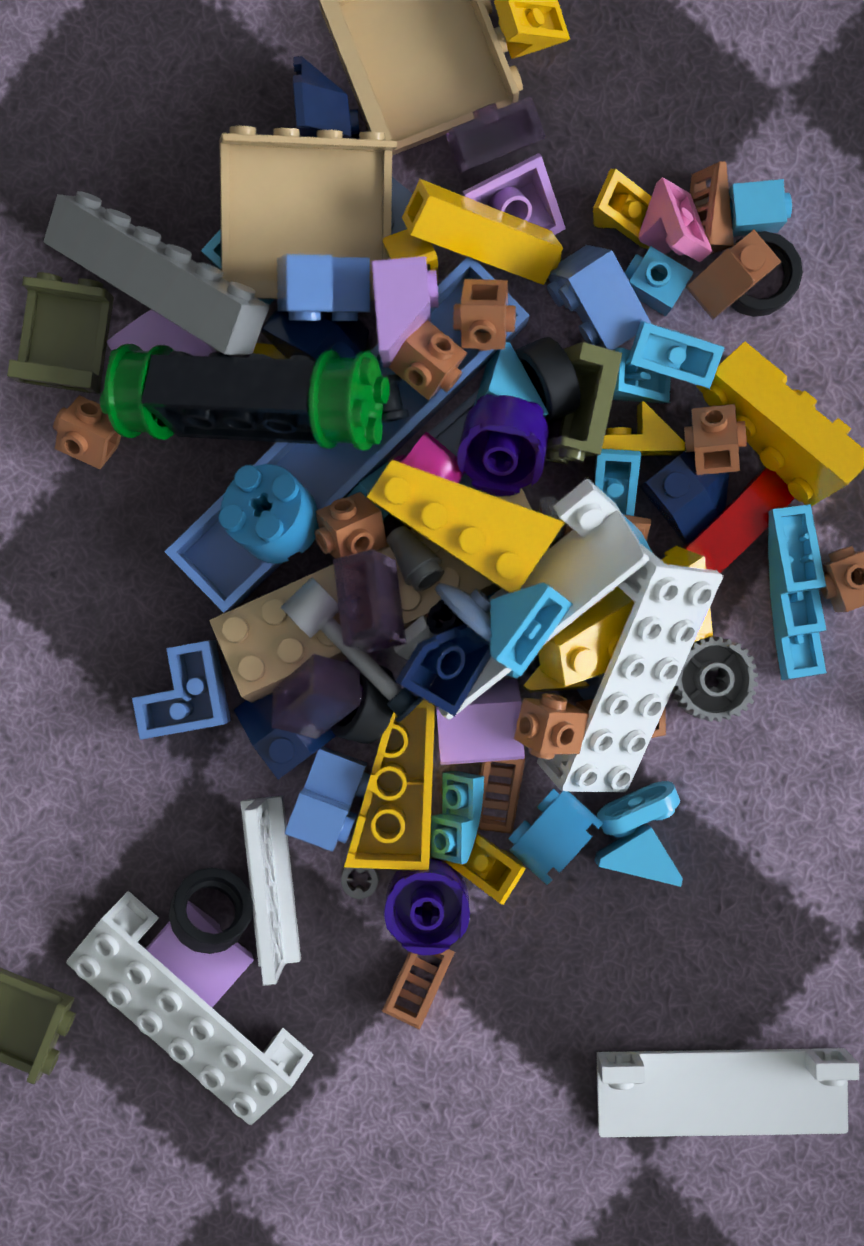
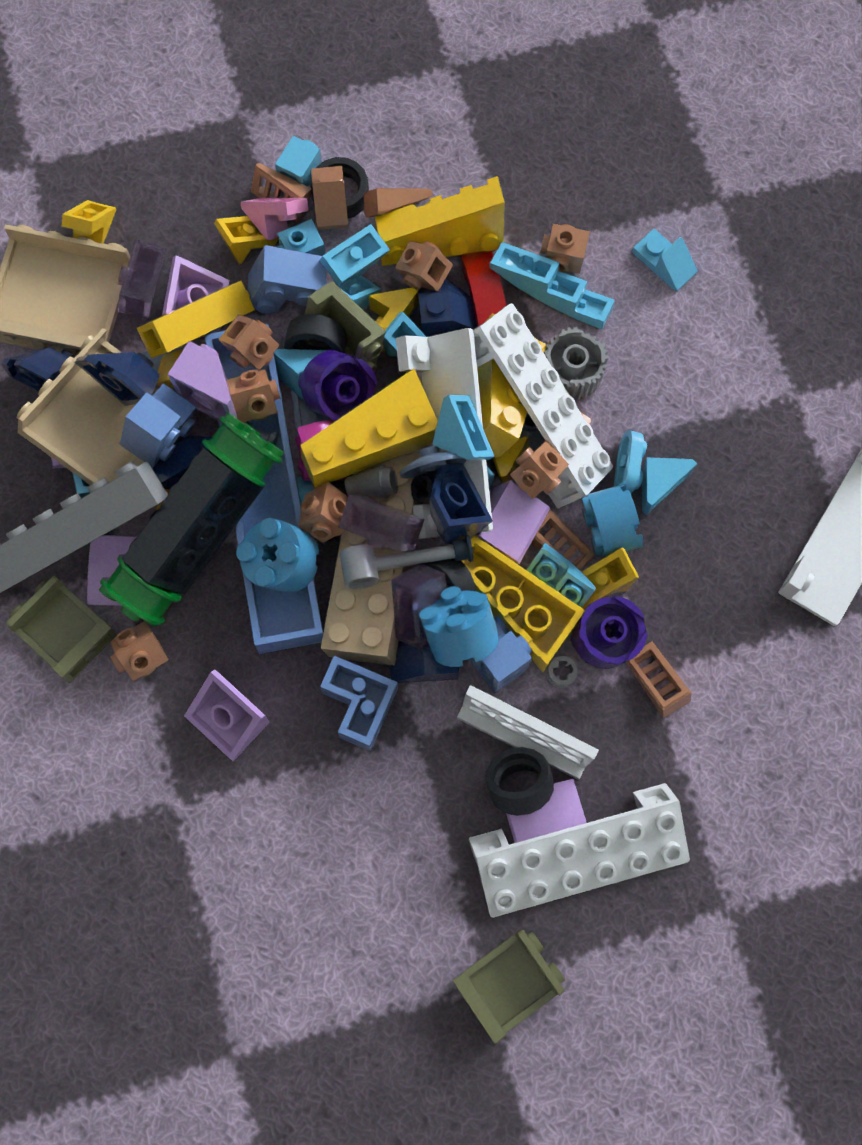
camera: 55 degrees left, 15 degrees down
(87, 567) = (225, 716): none -> lavender slope
(314, 757) = (460, 627): none -> dark azure brick
(358, 205) = (121, 374): none -> dark blue slope
(774, 342) = (388, 199): none -> nougat slope

